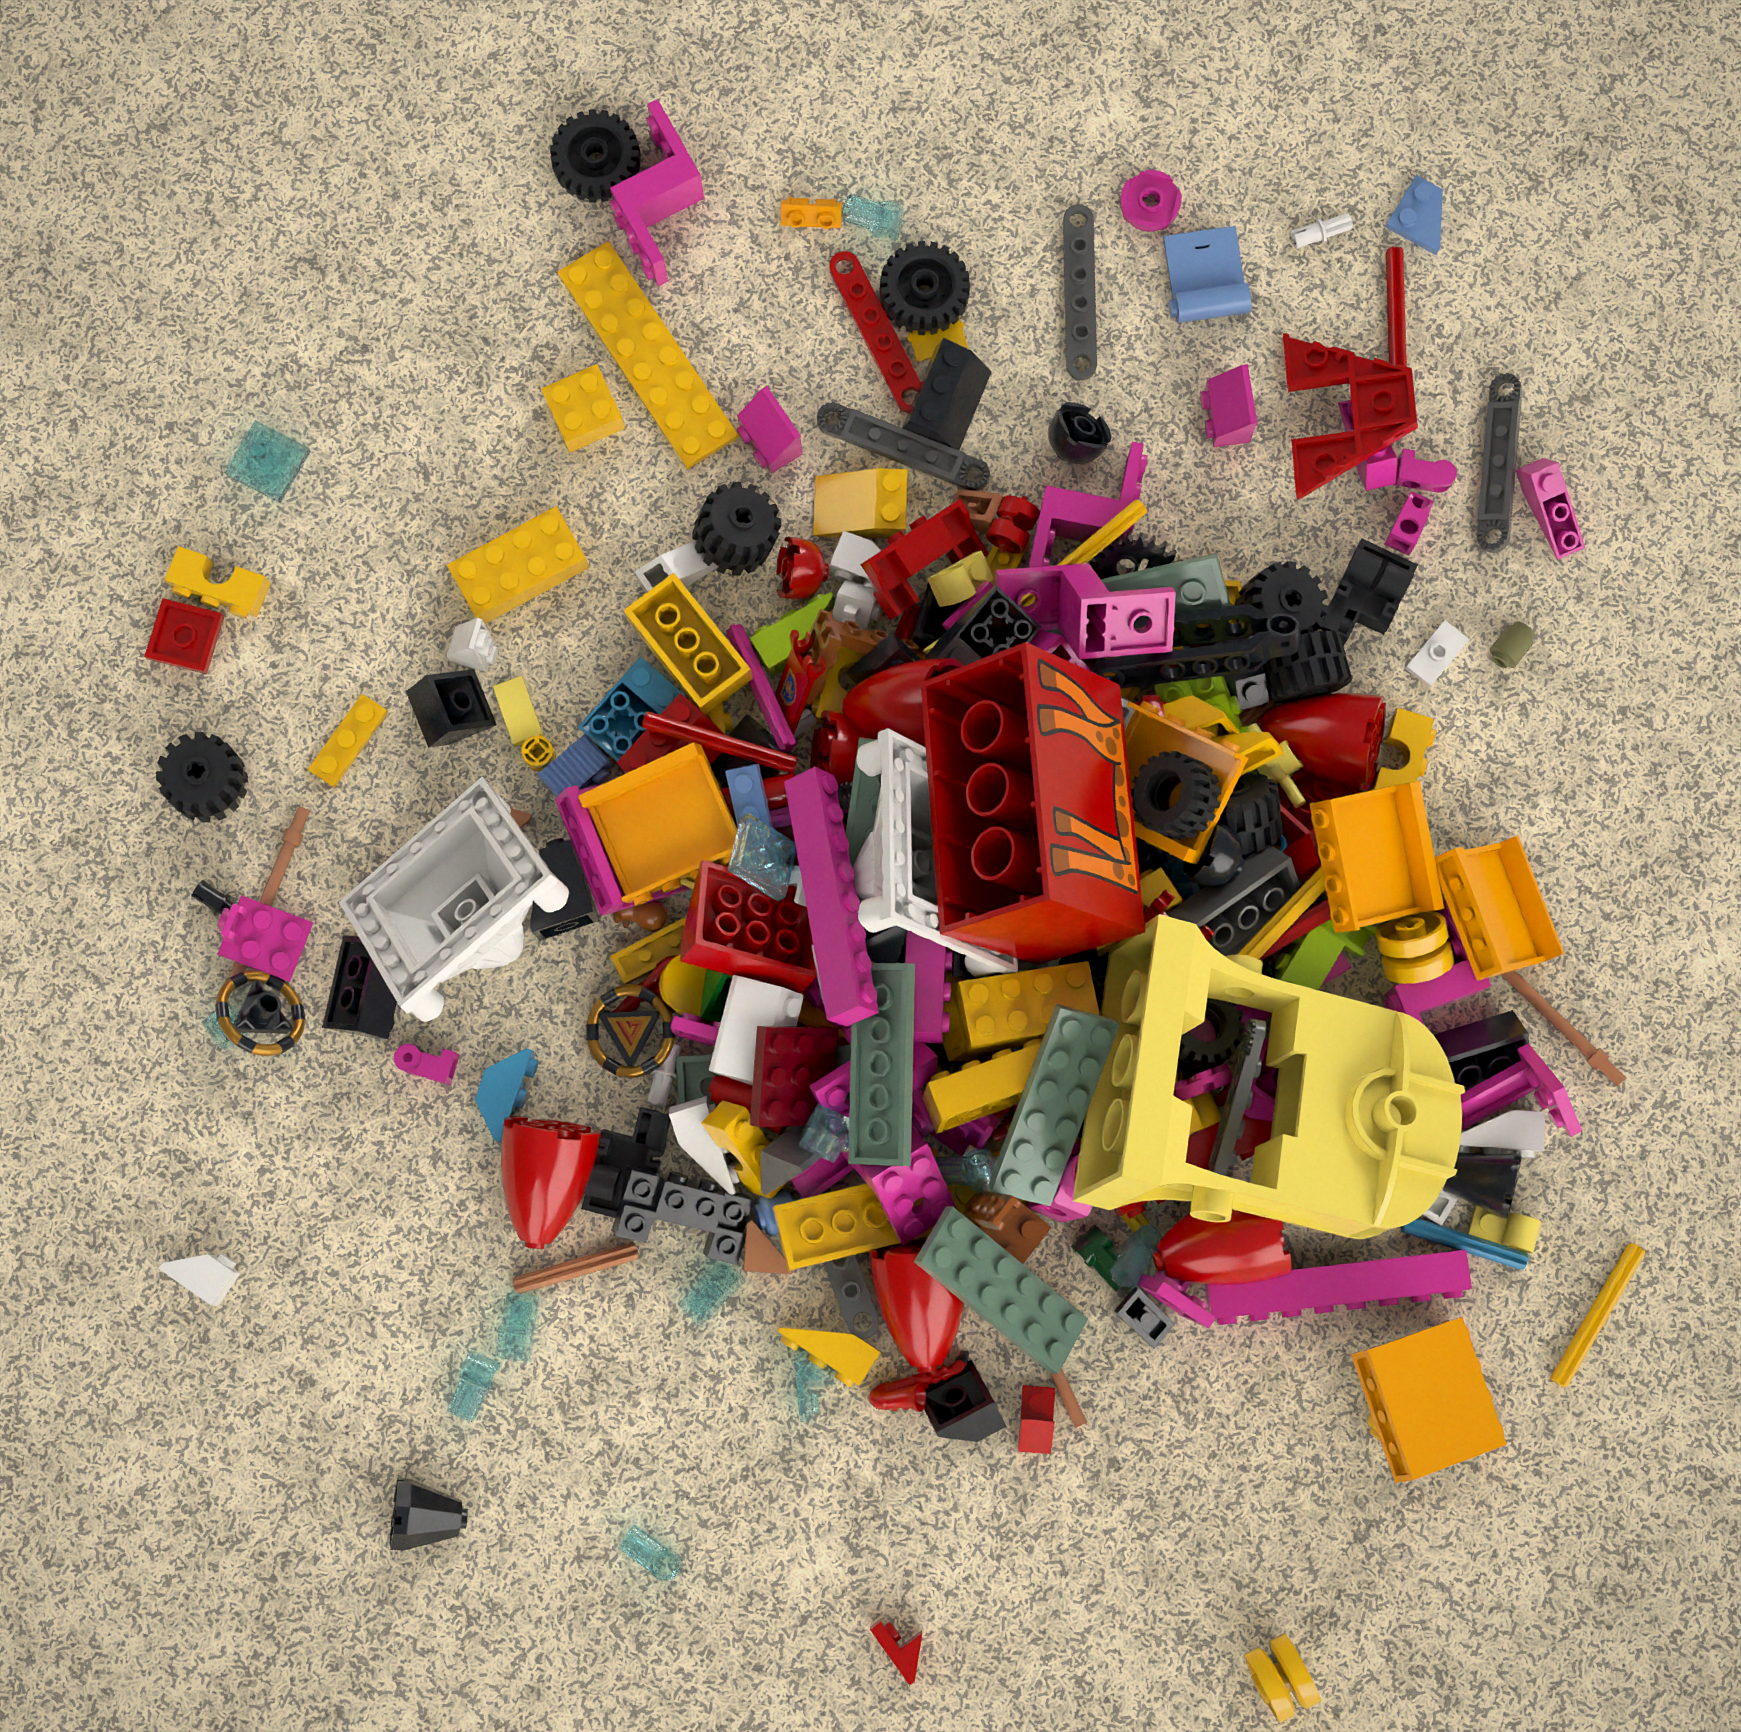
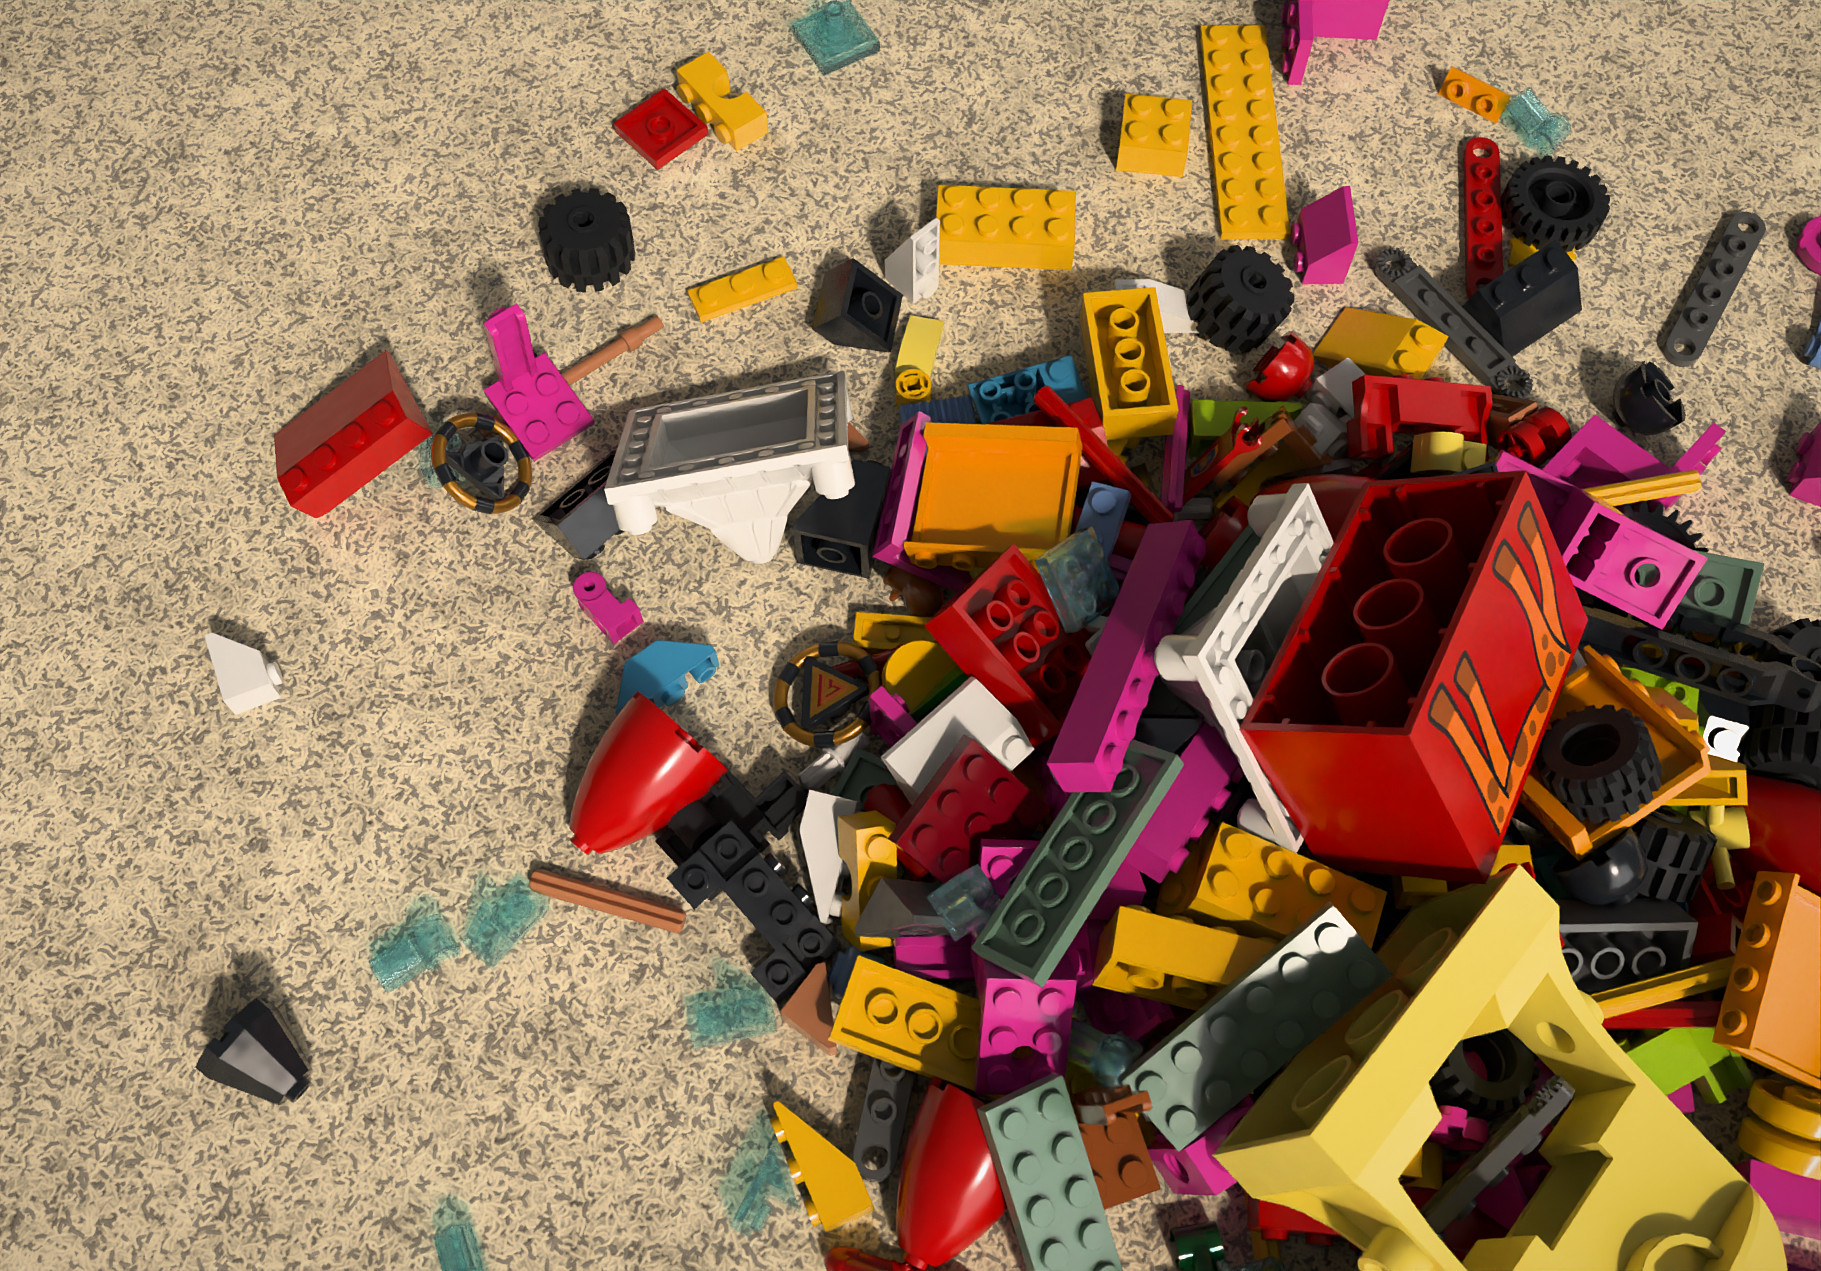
camera: 30 degrees right, 15 degrees down
(142, 1054) = (348, 438): none -> red slope

